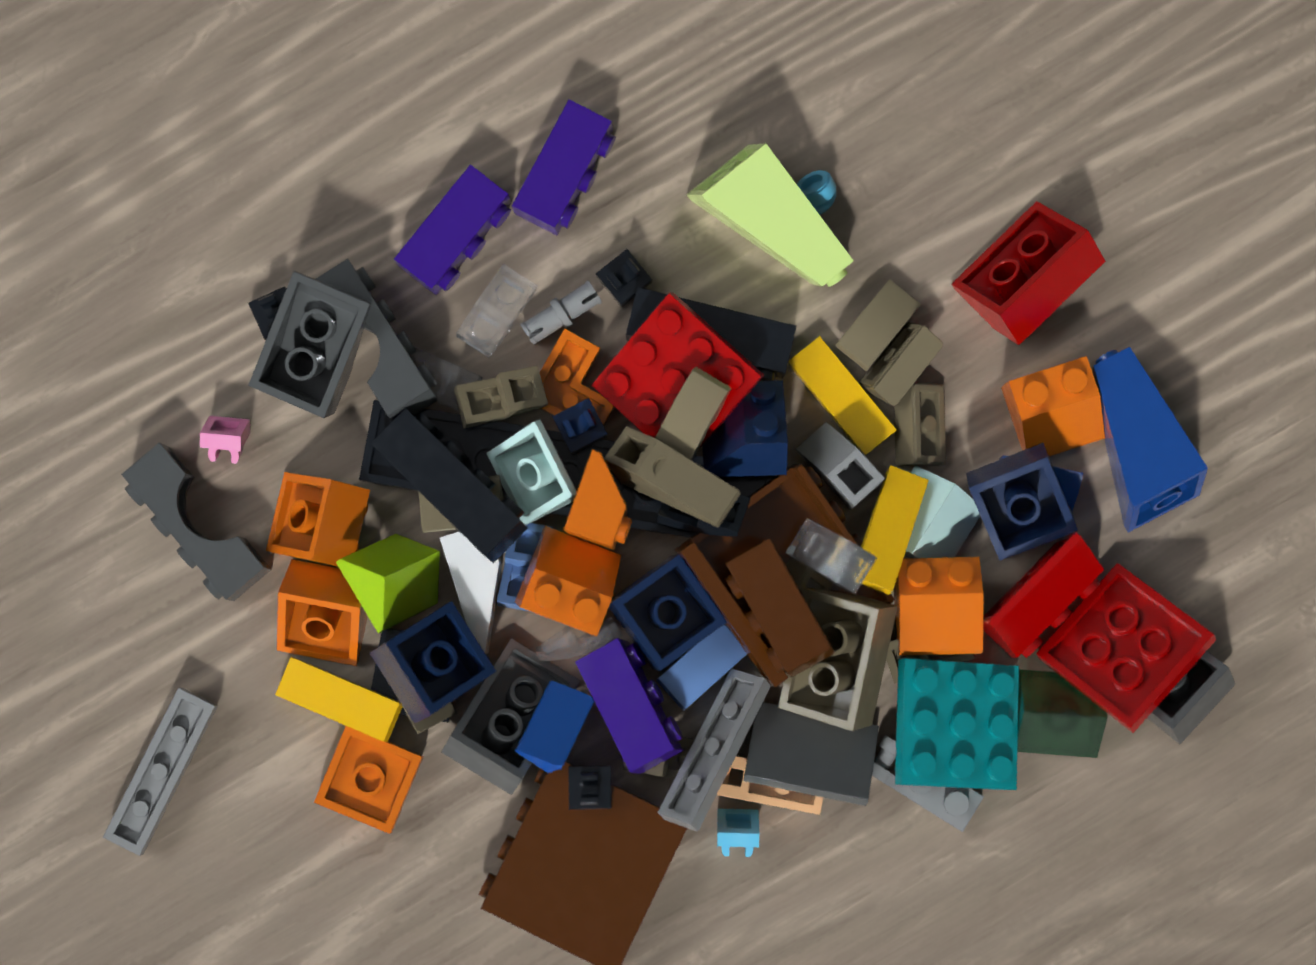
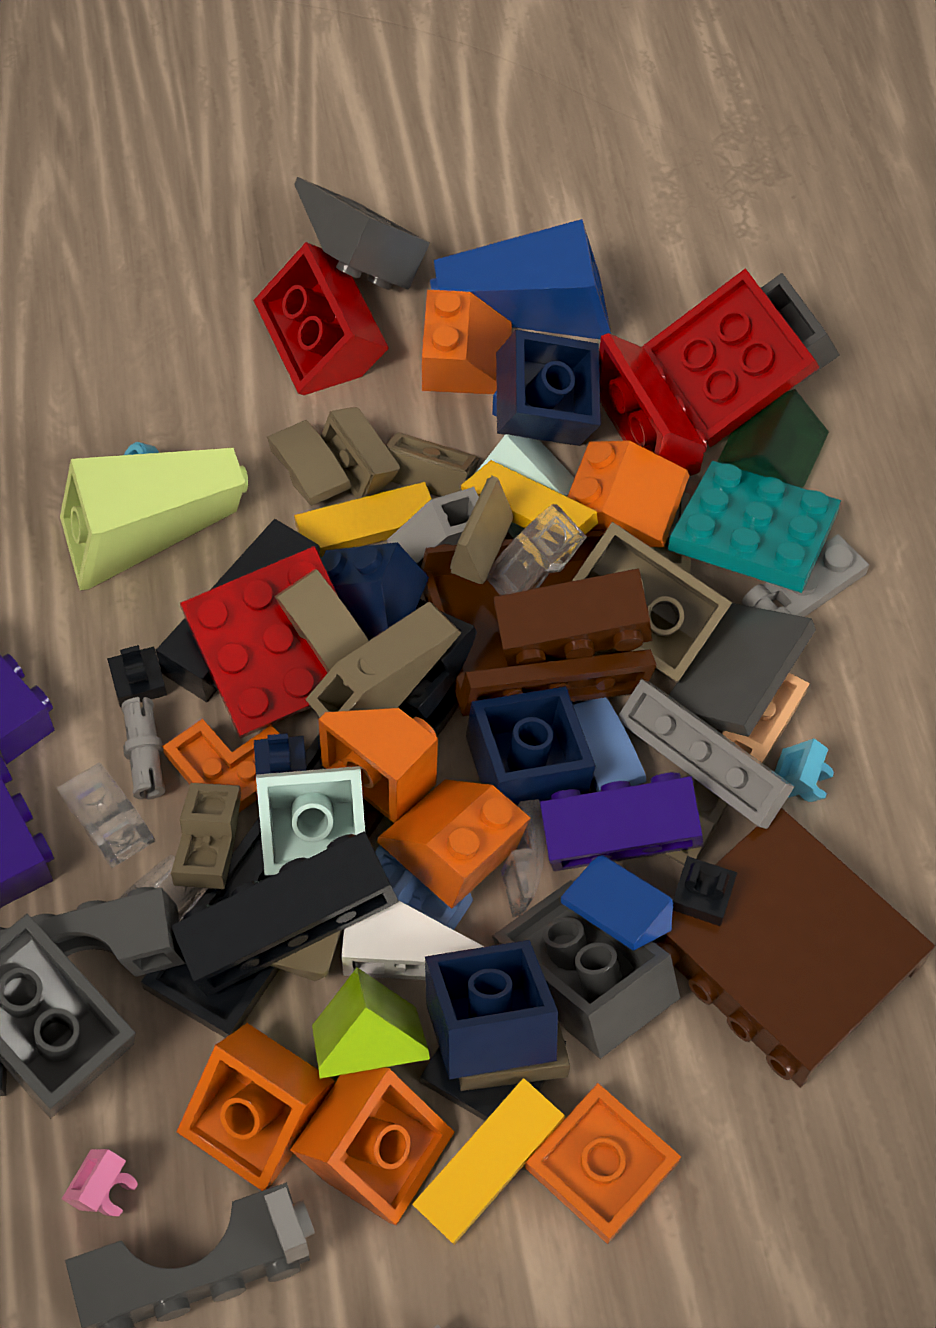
camera: 75 degrees left, 25 degrees down
(228, 583) = (291, 1224): none -> light grey plate
(830, 506) = (483, 534): none -> dark tan slope
(1133, 267) = (362, 237): none -> dark grey slope

